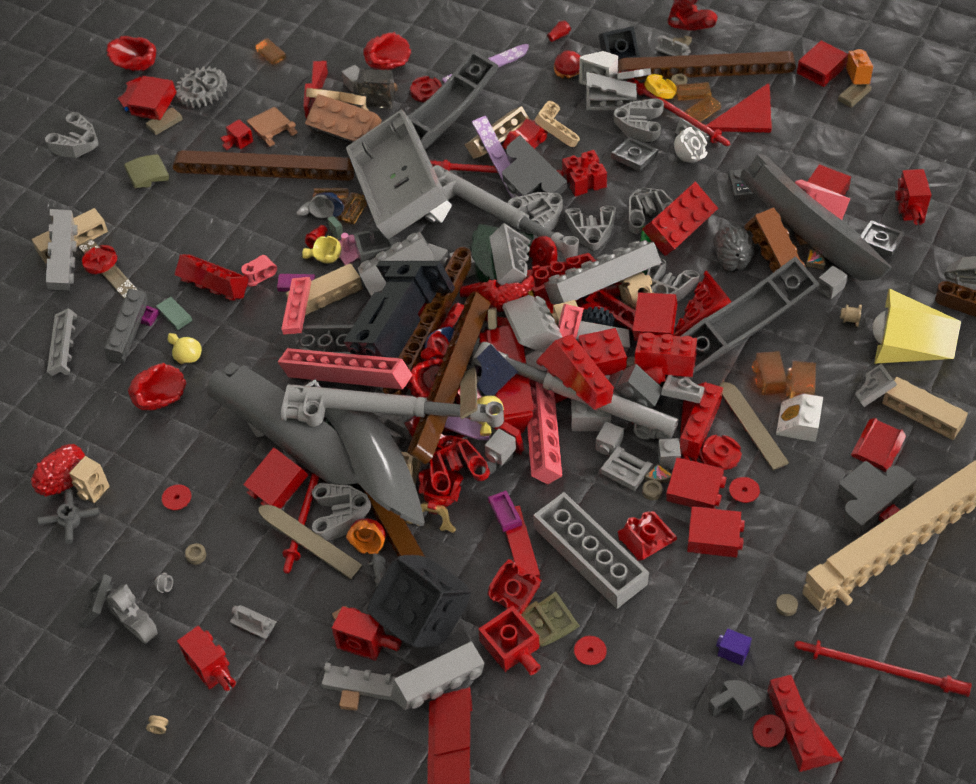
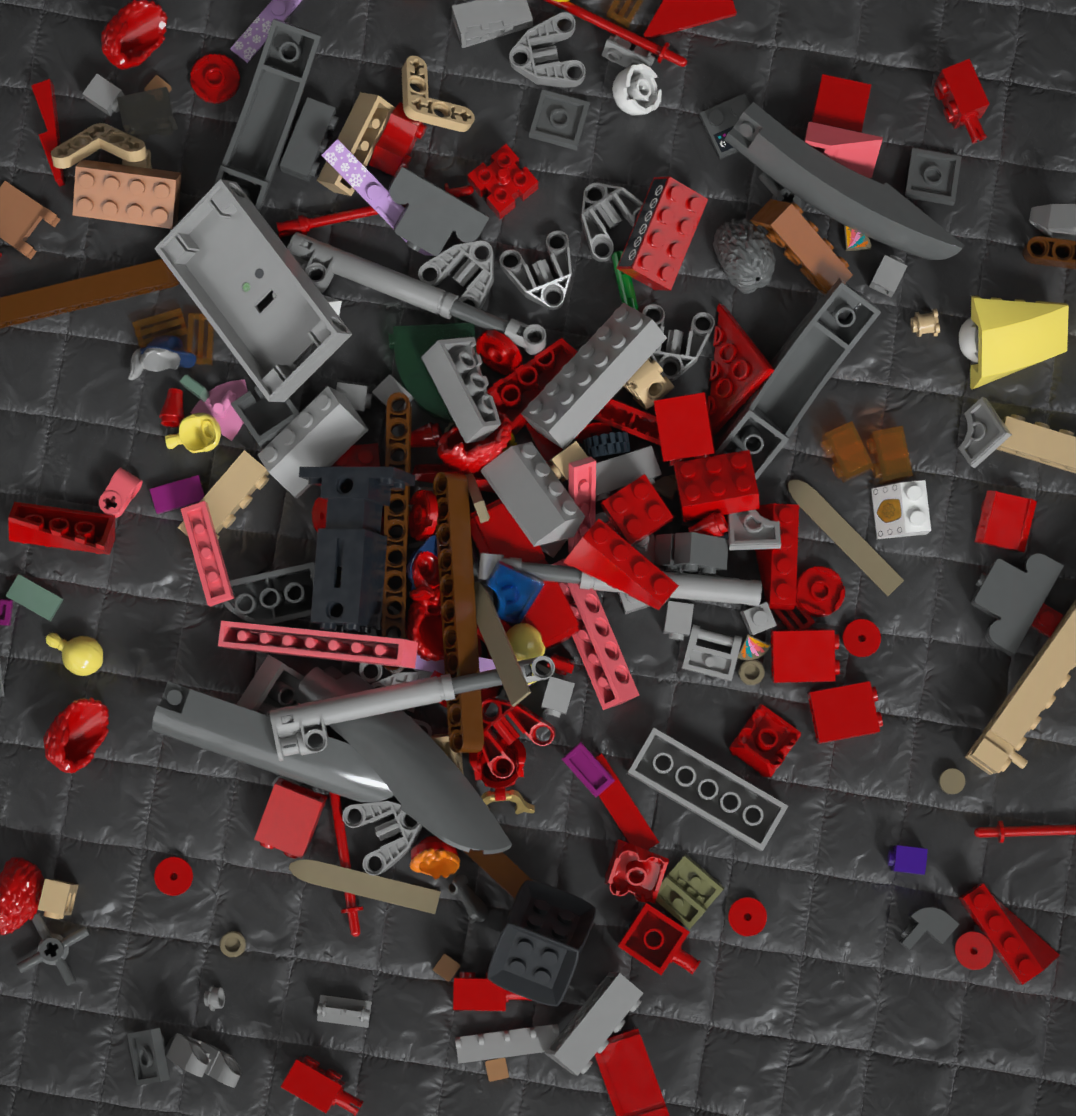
camera: 25 degrees left, 30 degrees up
(462, 129) = (309, 140): none -> dark grey brick

